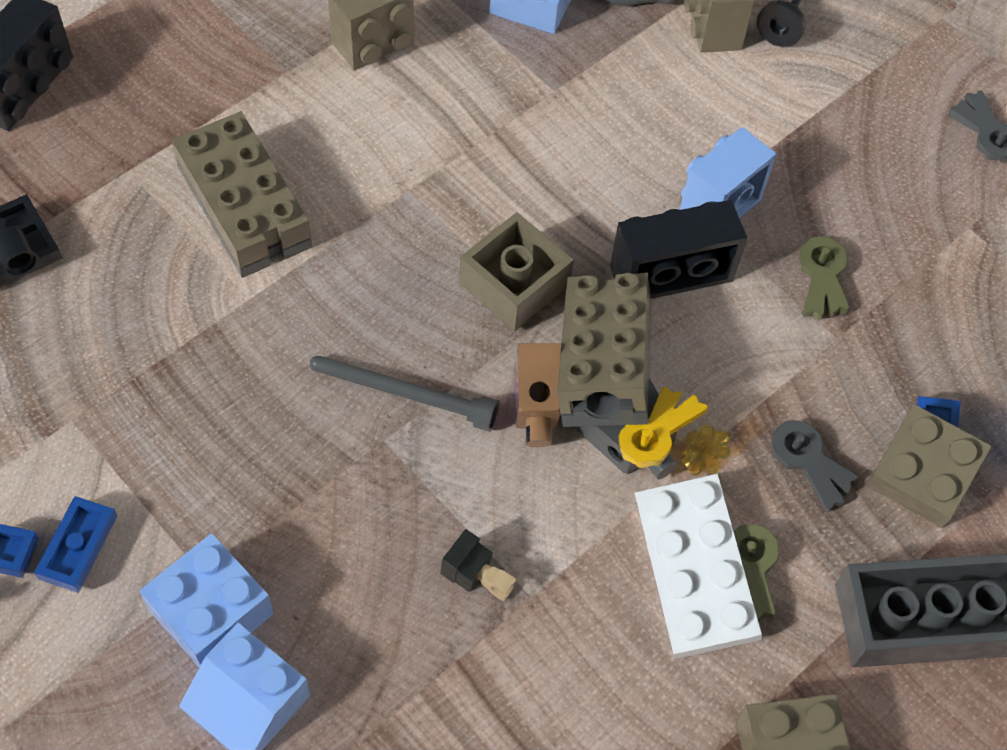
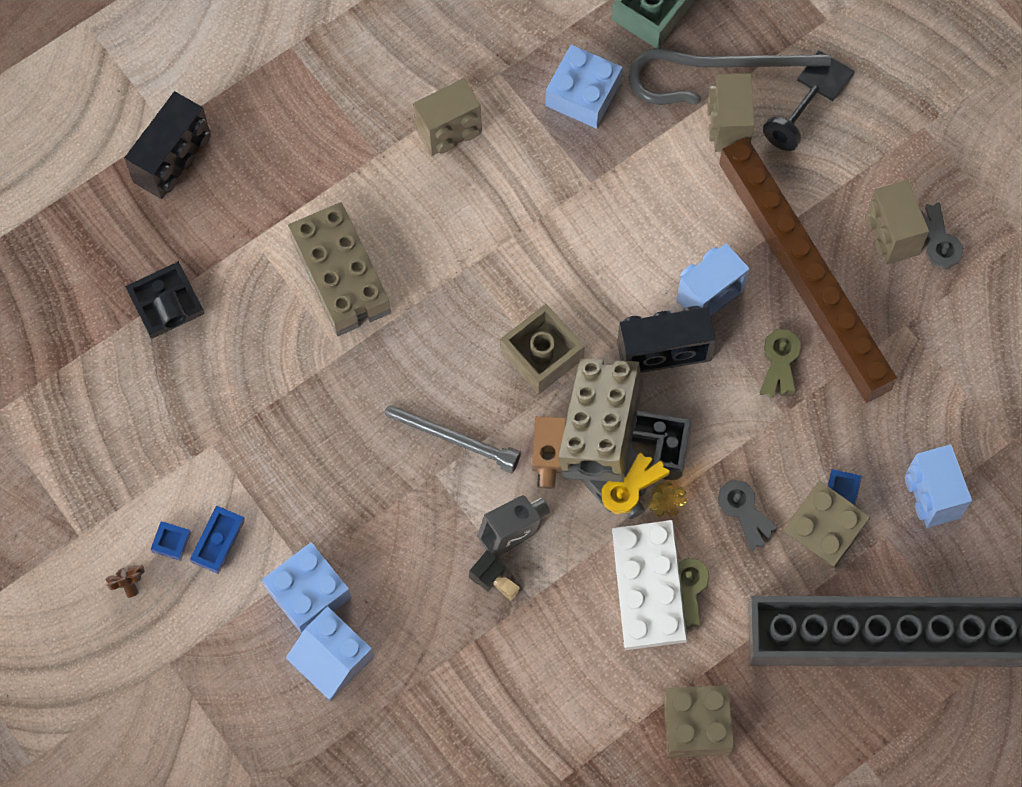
camera: 10 degrees right, 10 degrees up
(495, 493) = (511, 524): none -> dark grey torso
(695, 369) = (668, 435): none -> black brick
(844, 172) = (807, 270): none -> reddish brown brick
(942, 105) = (896, 222): none -> dark tan brick

